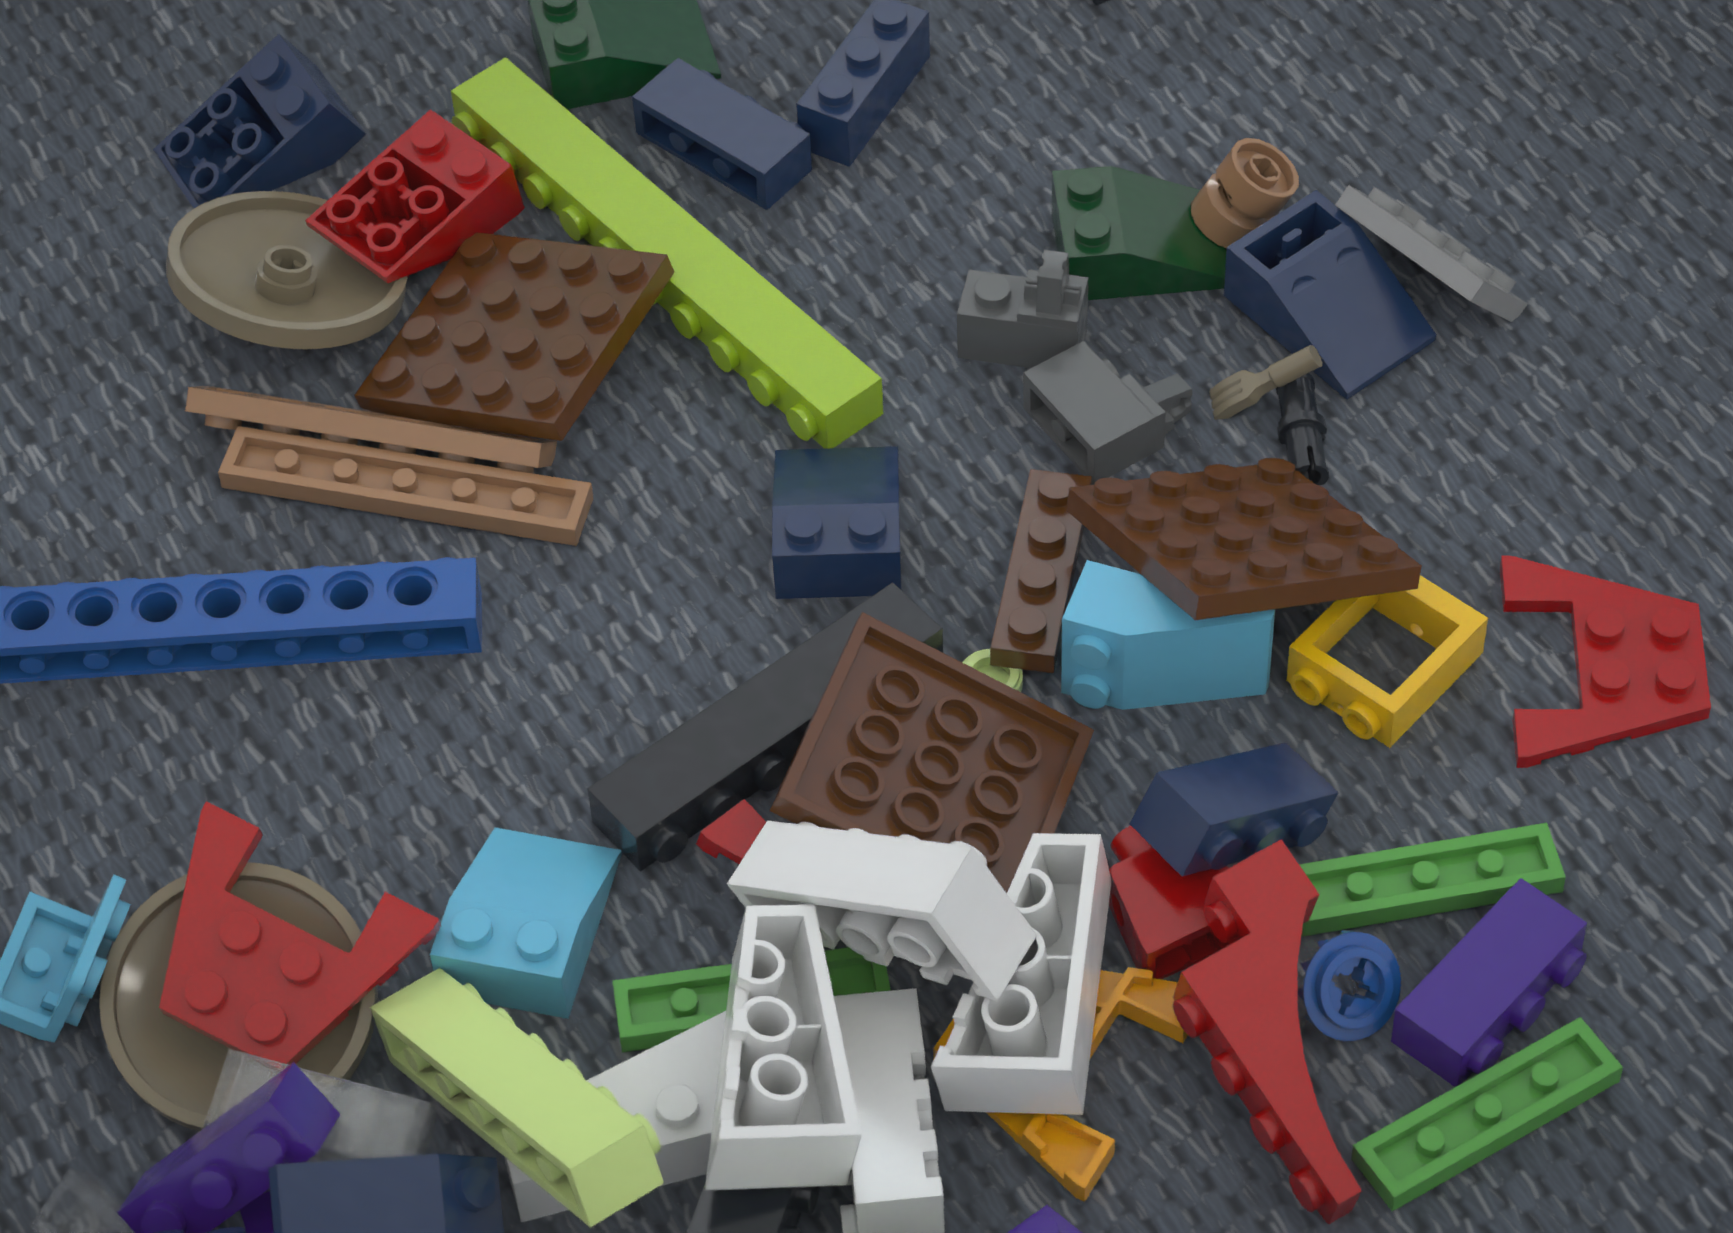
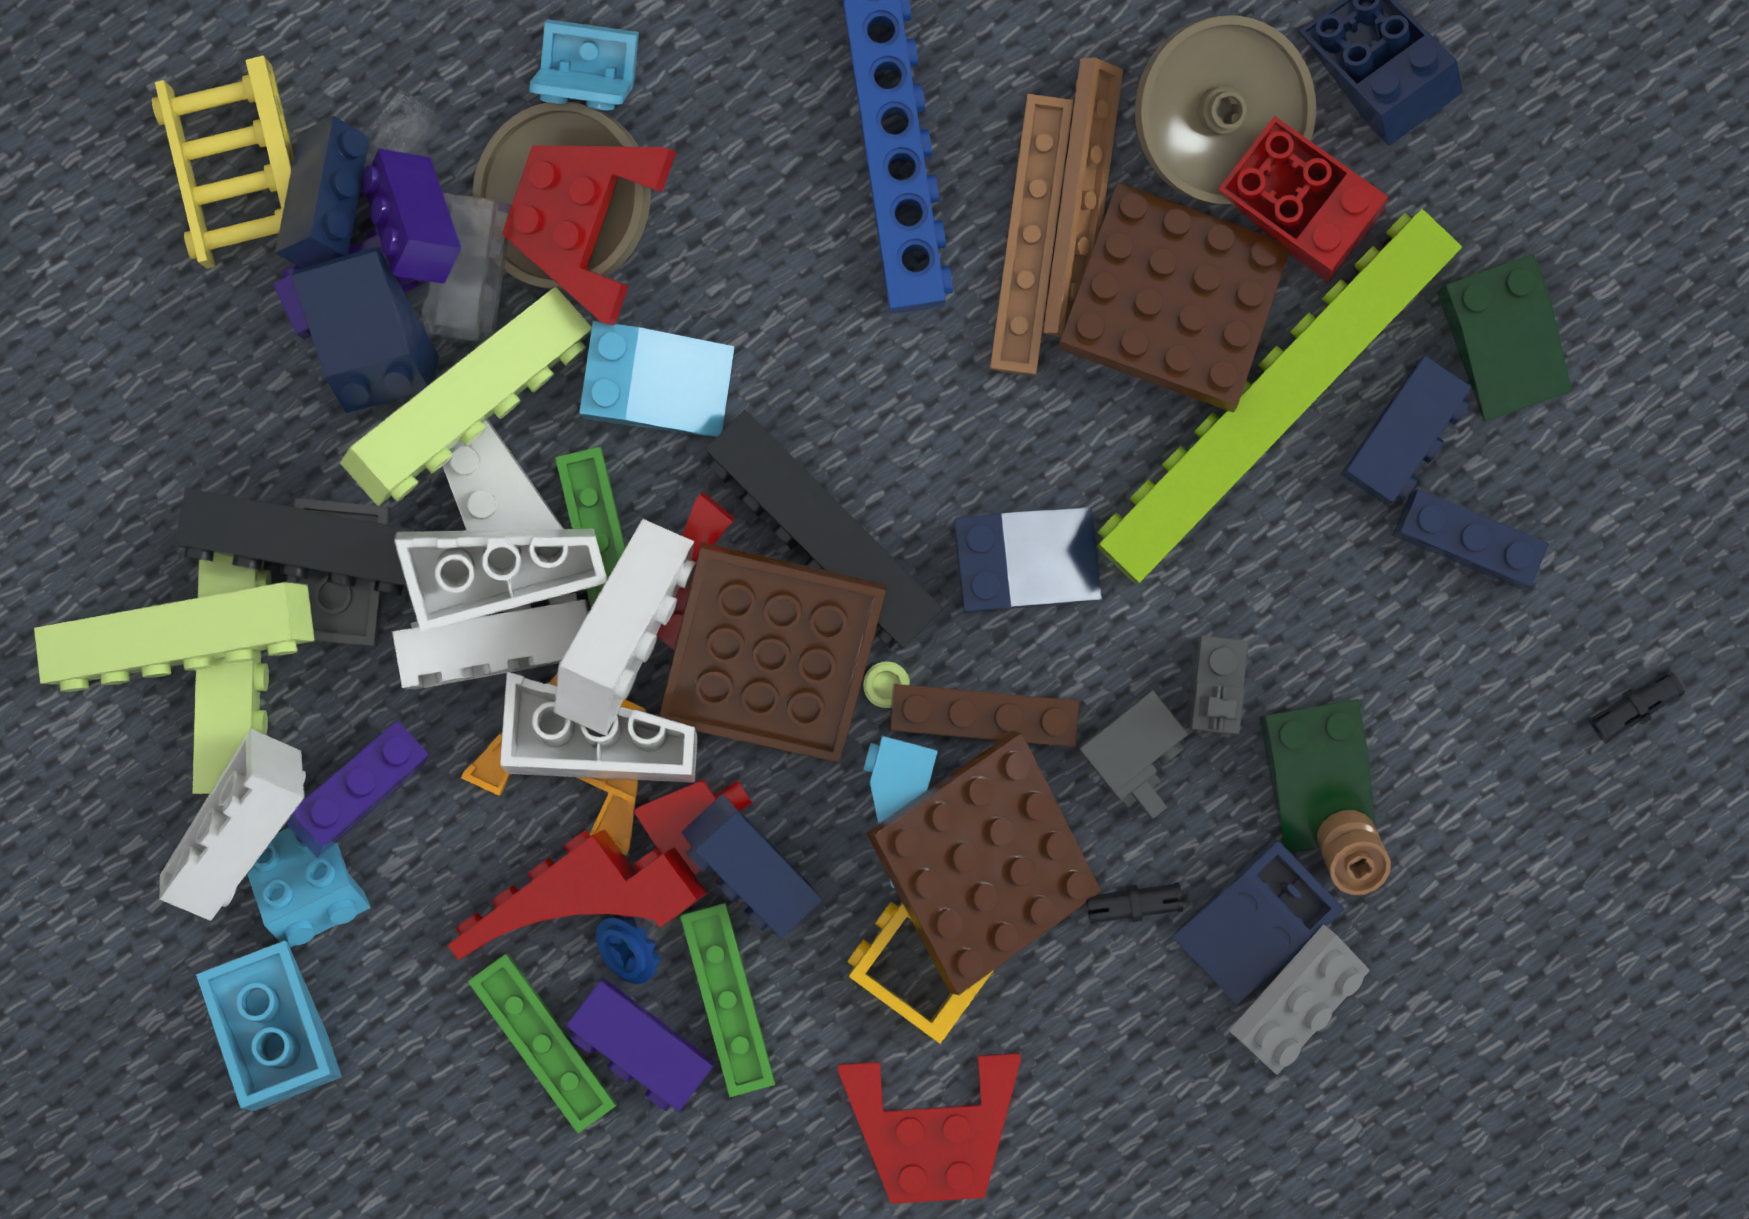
camera: 80 degrees right, 35 degrees up
(1247, 388) = (1167, 860): dark tan piece -> none

